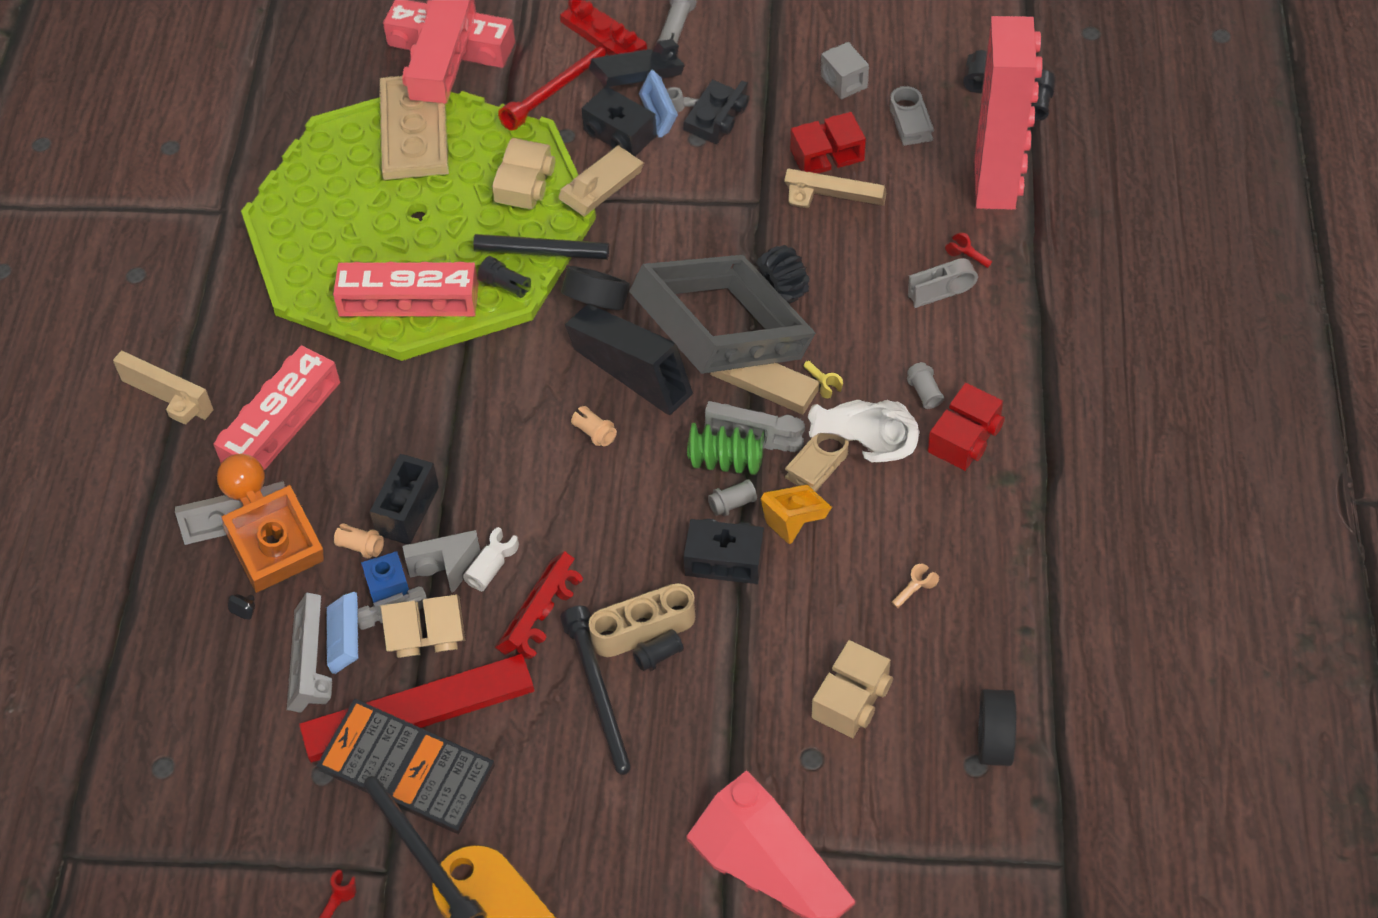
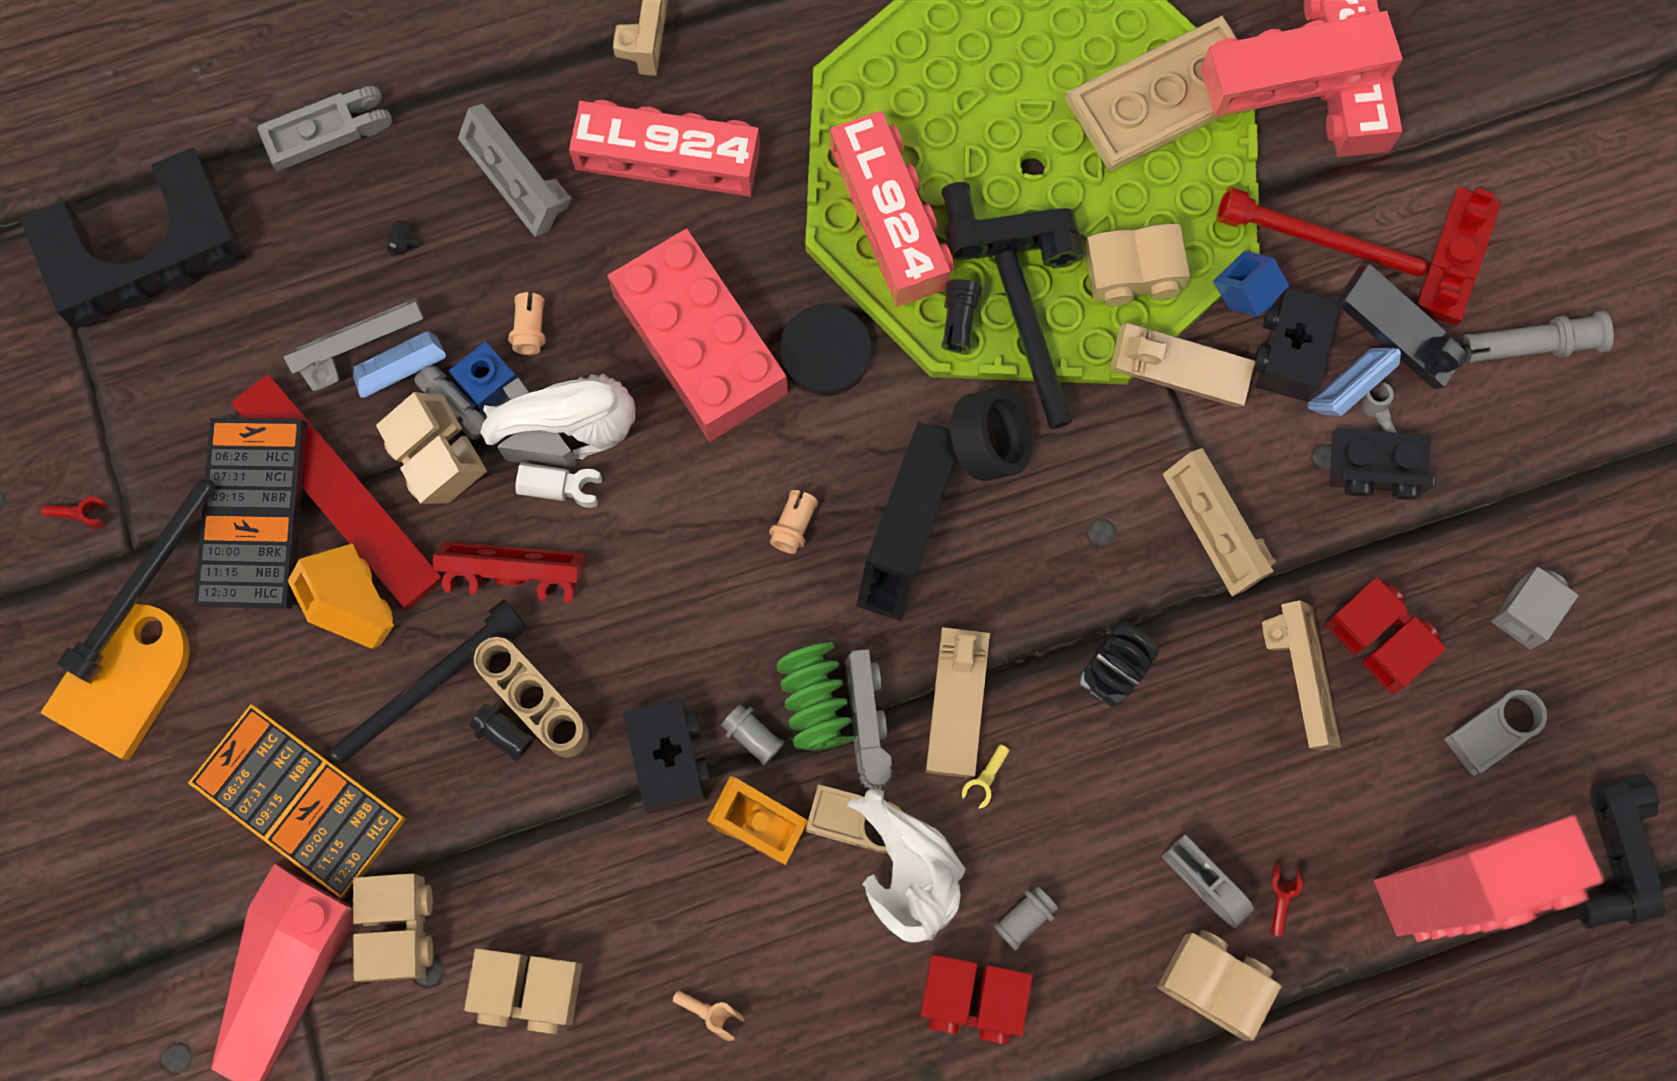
camera: 65 degrees right, 20 degrees up
(120, 630) = (323, 127): none -> light grey hinge
(153, 829) = (196, 243): none -> black arch
(276, 515) = (504, 225): orange brick -> none
(404, 499) = (589, 346): black brick -> none
(446, 512) = (589, 409): none -> white hair
(448, 427) = (698, 335): none -> coral brick
(473, 210) = (1049, 230): none -> black beam
(480, 371) = (825, 350): none -> black tile
(508, 717) = (340, 596): none -> light orange slope
(568, 123) = (1251, 283): none -> blue plate
(642, 806) = (297, 801): none -> tile
(713, 199) = (1218, 523): none -> tan hinge
(785, 331) = (1071, 654): dark grey window -> none
(791, 766) = (391, 902): none -> tan piece
(1010, 298) = (1220, 986): none -> tan brick

